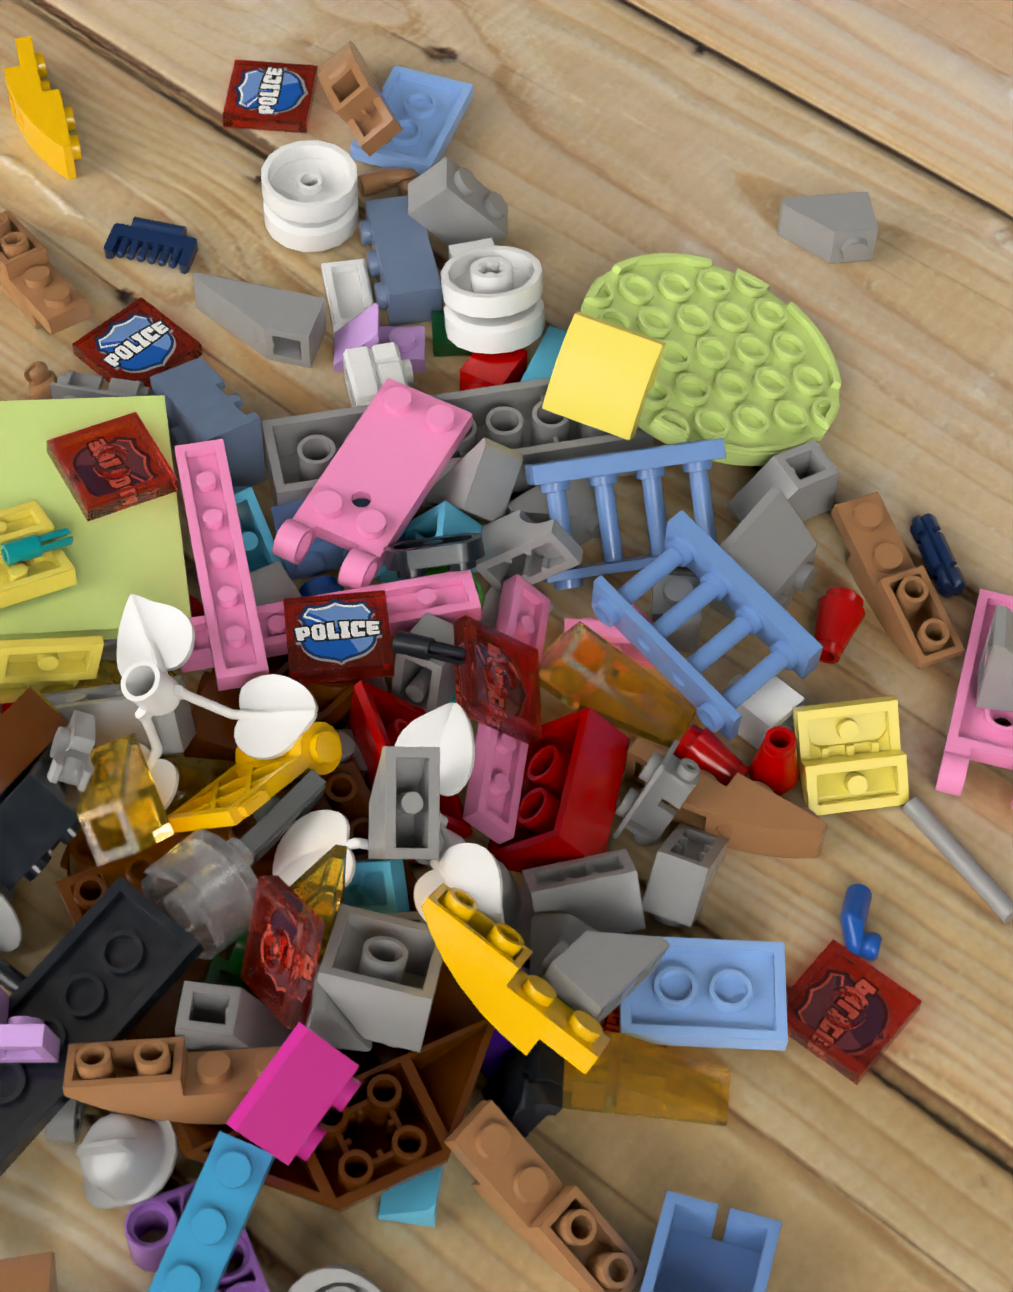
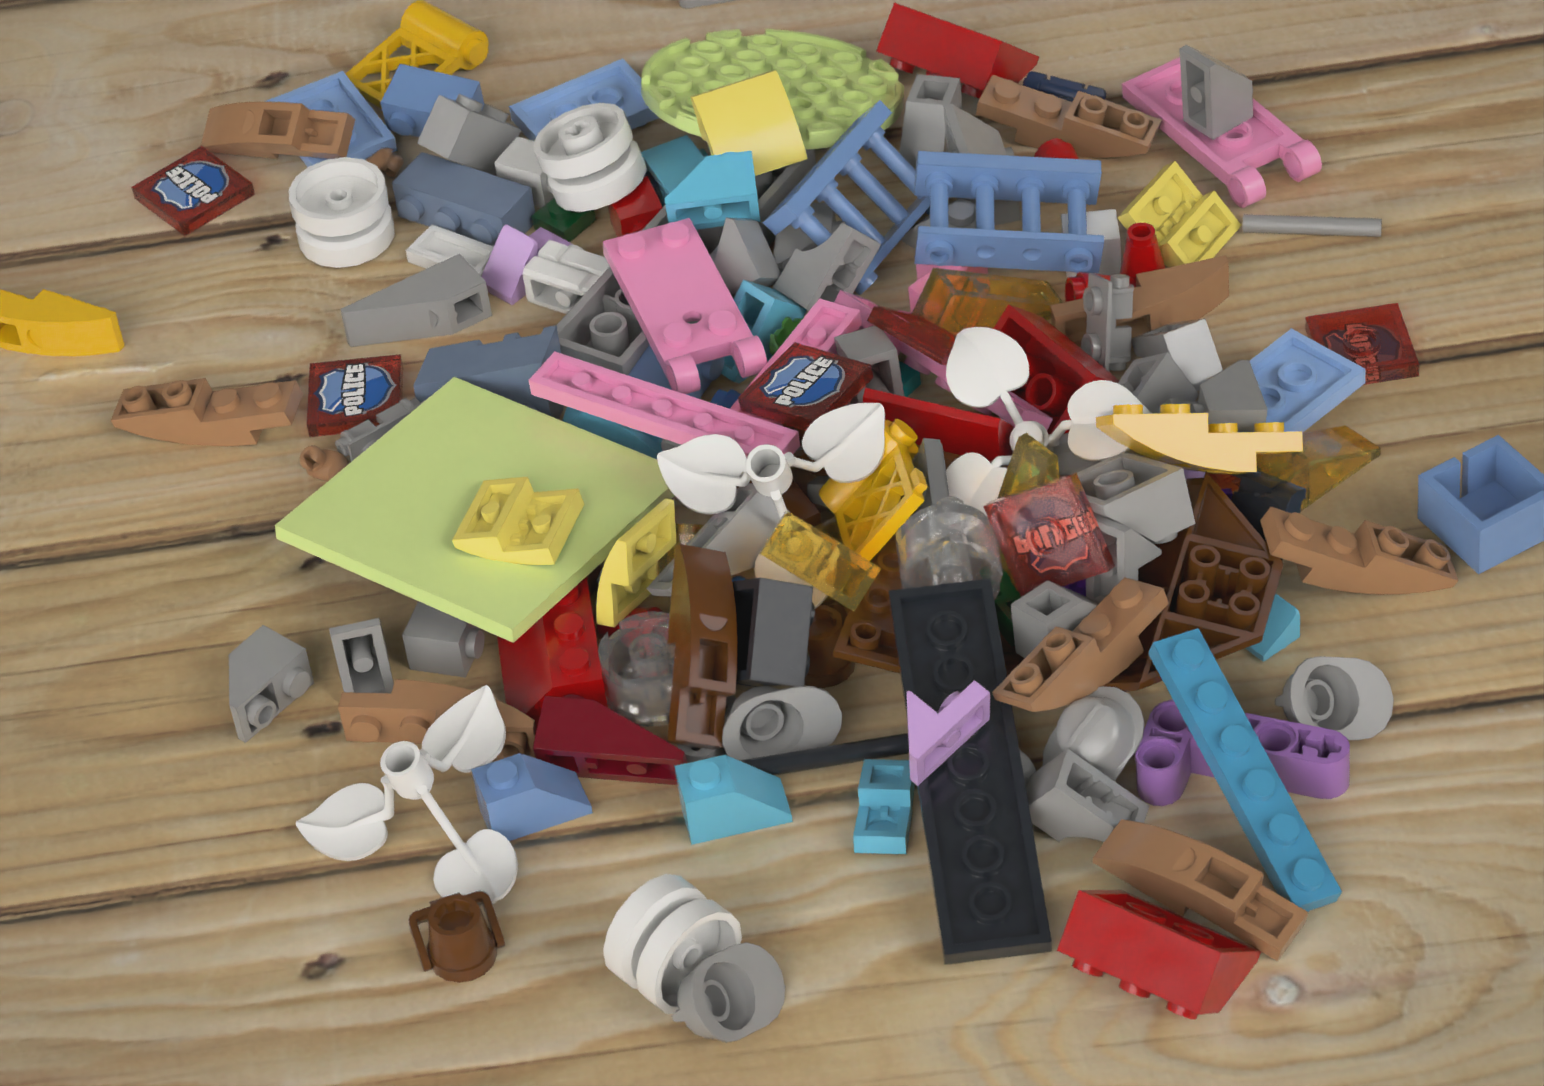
camera: 40 degrees left, 10 degrees down
(30, 547) = (531, 499): teal pin -> none
(61, 1207) = (1079, 800): none -> light grey arch
(72, 751) = (758, 556): light grey plate -> none
(112, 466) = (494, 431): clear red tile -> none
(152, 236) = (253, 329): dark blue piece -> none
(295, 1095) = (1173, 574): dark pink slope -> none
(405, 804) = (1014, 400): light grey slope -> none
(414, 556) = (794, 297): black plate -> none
(427, 648) = (876, 341): black pin -> none
(487, 155) = (414, 93): none -> medium blue brick
(515, 410) = (716, 190): none -> medium azure slope
(570, 122) = (432, 37): none -> yellow piece
(579, 250) = (609, 84): none -> light blue plate
(853, 922) = (1306, 298): blue arm -> none
(899, 444) = (950, 50): none -> red slope

